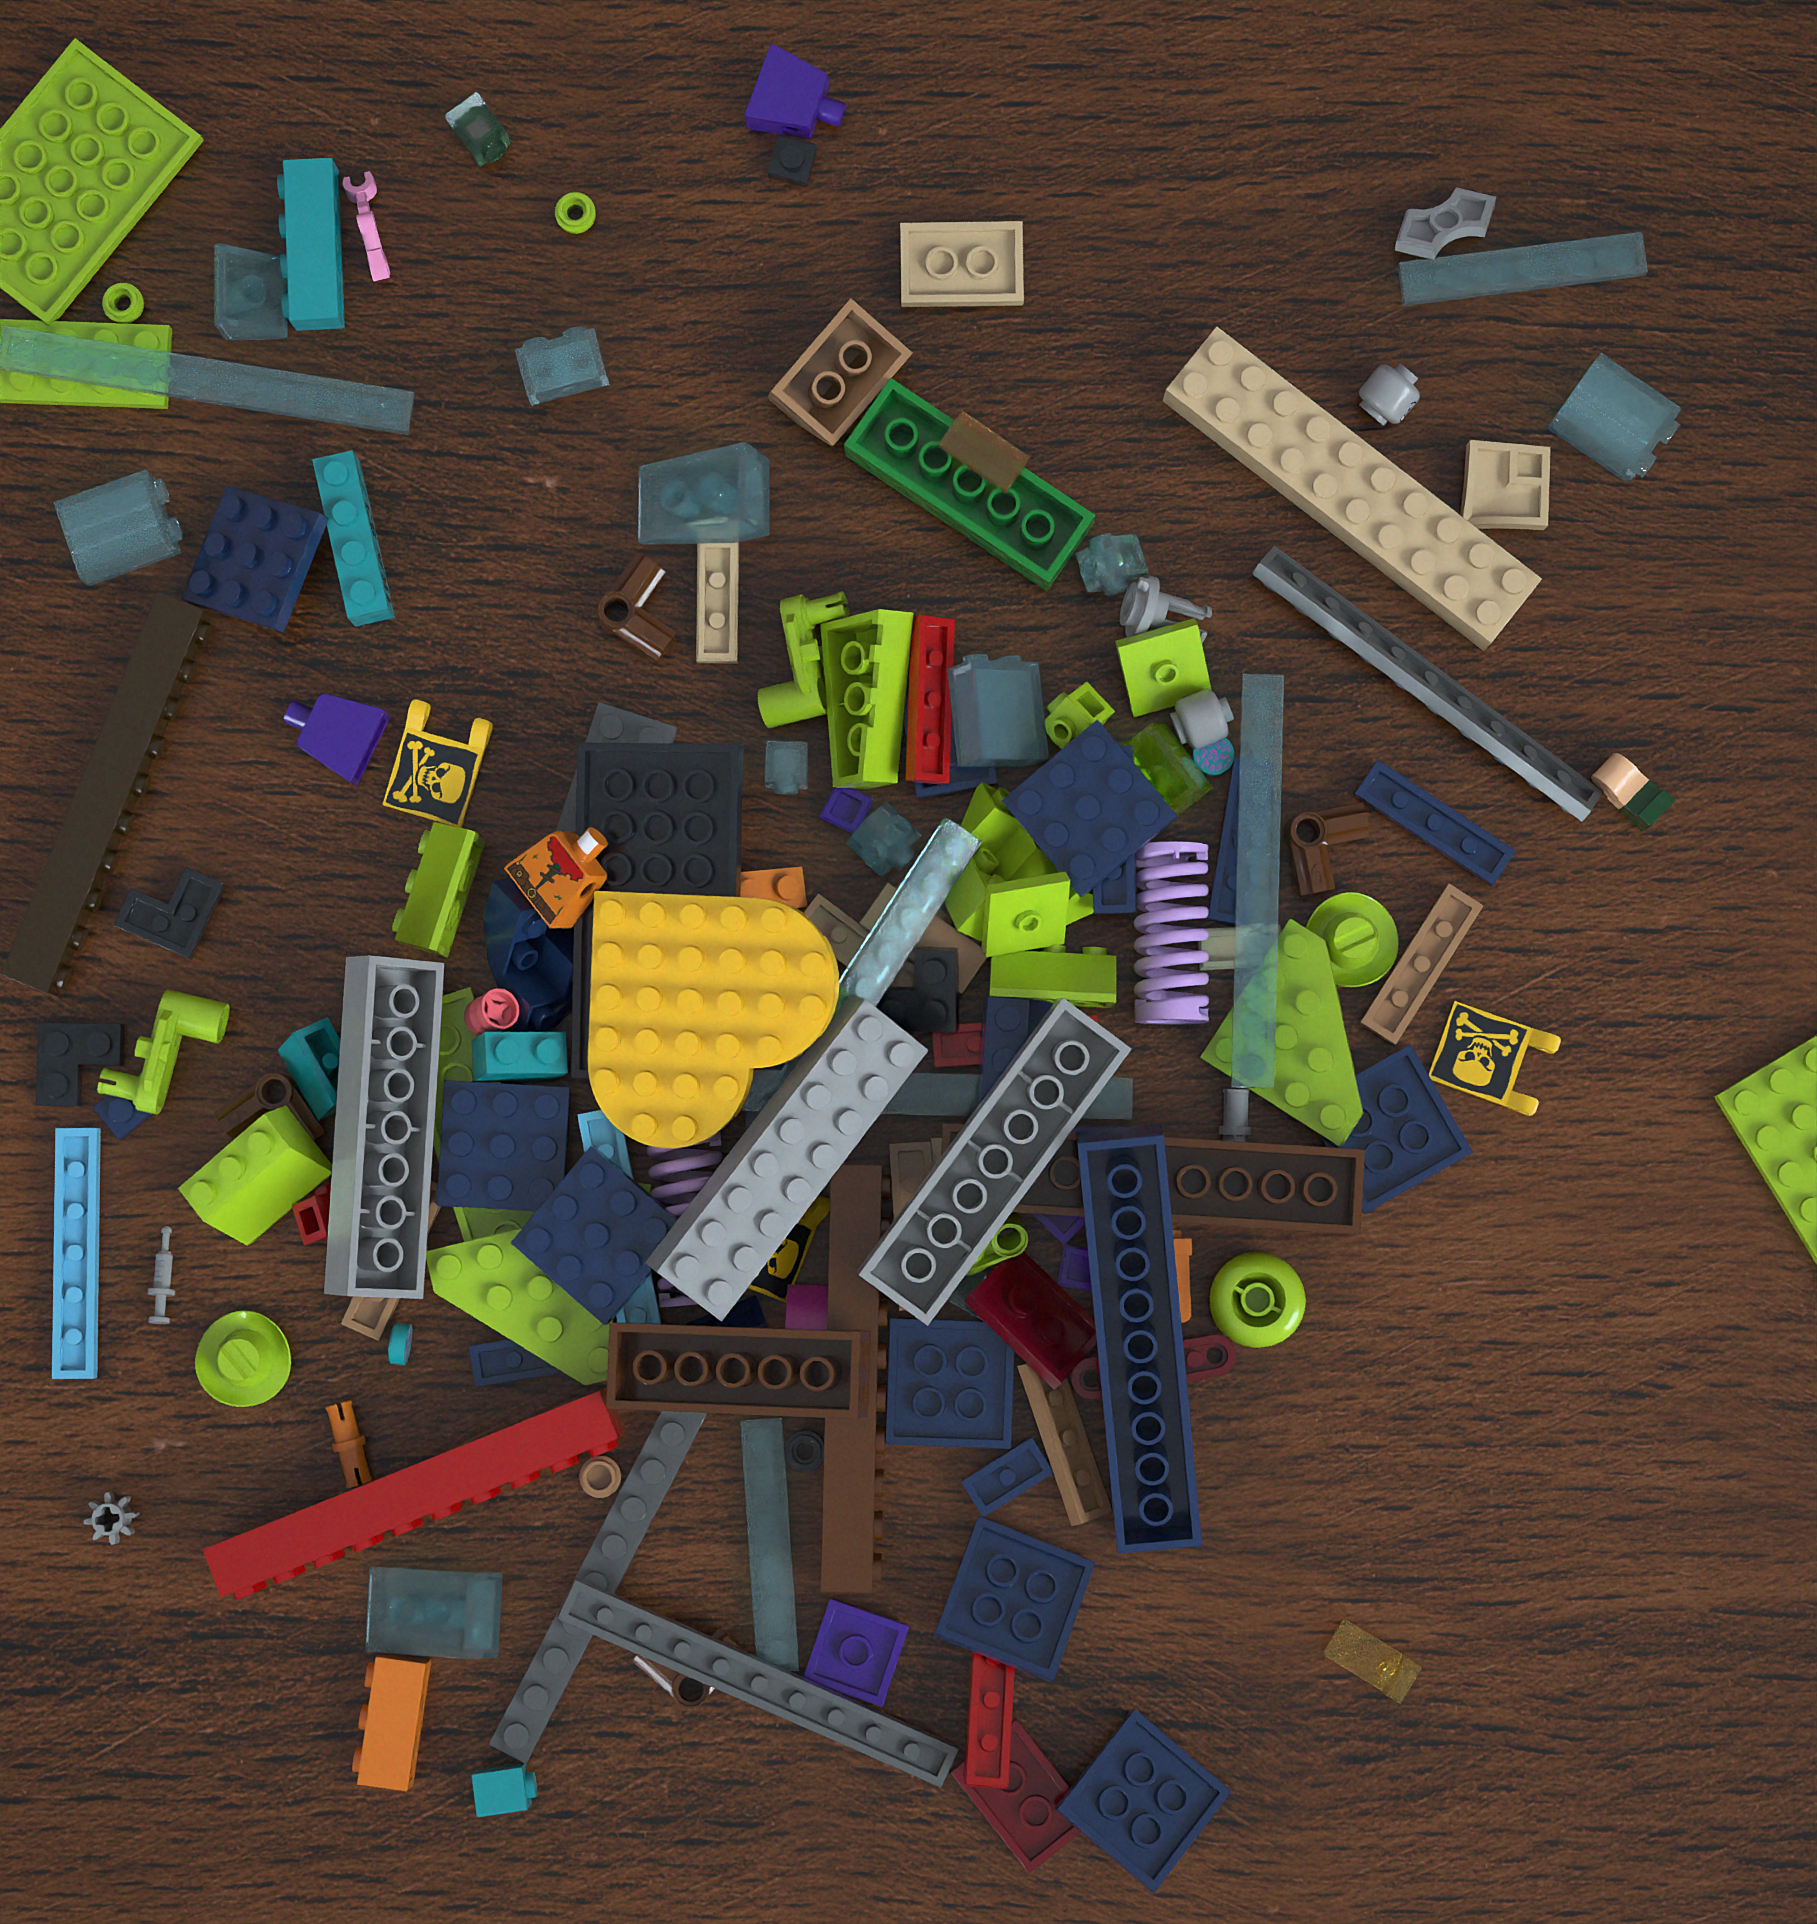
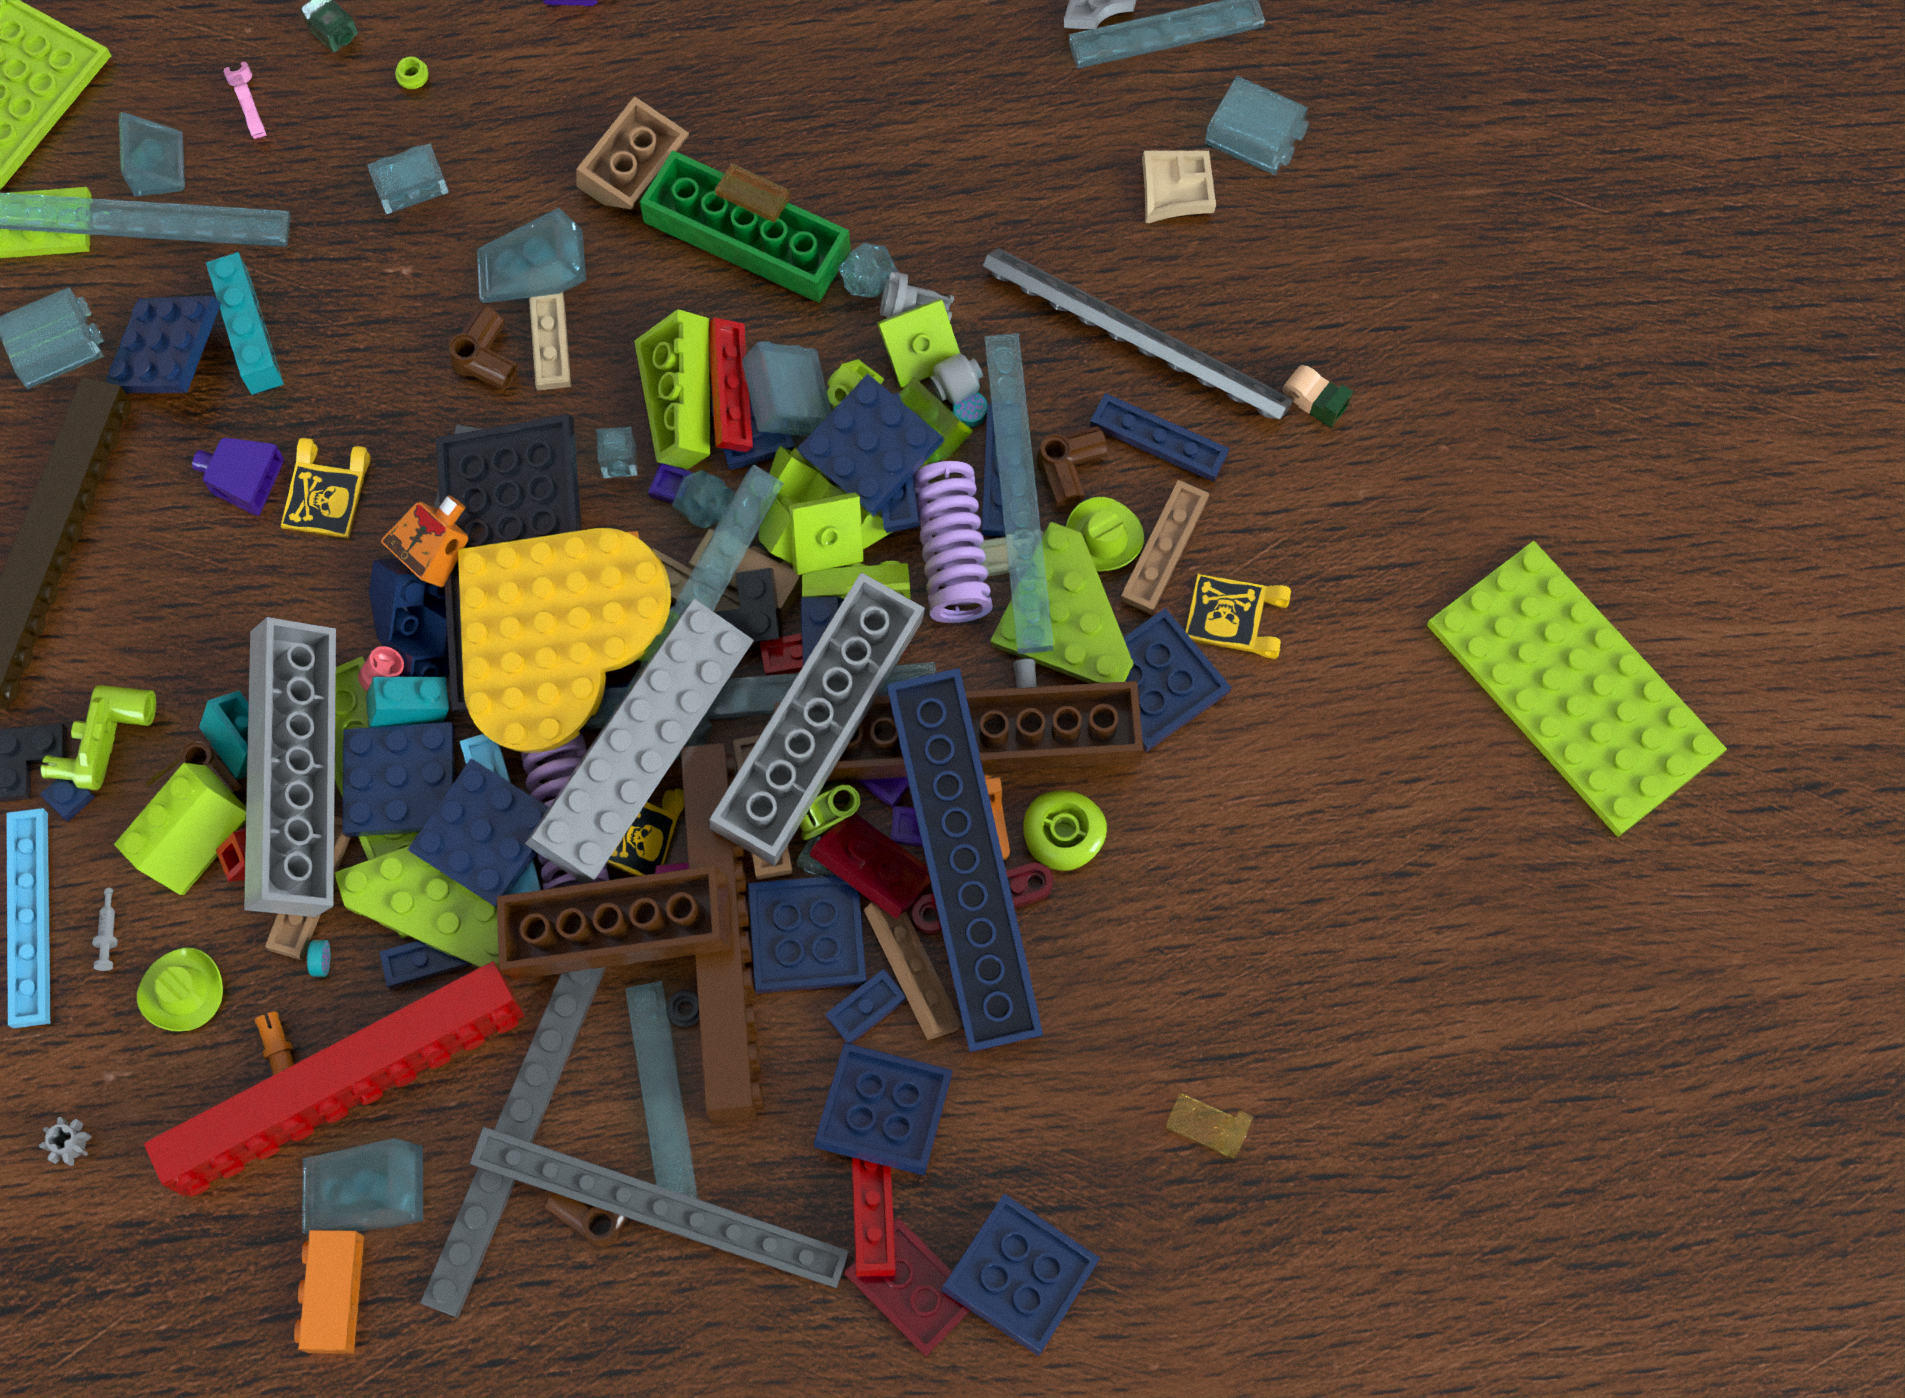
camera: 10 degrees left, 15 degrees down
(114, 295) = (45, 169): lime plate -> none
(177, 924) = (109, 637): black plate -> none
(312, 244) = (201, 116): teal brick -> none
(439, 888) = (333, 576): lime slope -> none
(503, 1789) = (435, 1341): teal brick -> none
(600, 1476) = (505, 1053): medium nougat plate -> none
(792, 161) = (582, 20): black plate -> none
(806, 693) = (628, 395): lime piece -> none
(856, 1651) = (748, 1176): dark purple plate -> none
(962, 264) = (723, 75): tan plate -> none
(1350, 489) = (1055, 198): tan brick -> none
(1389, 393) = (1074, 127): light grey head -> none

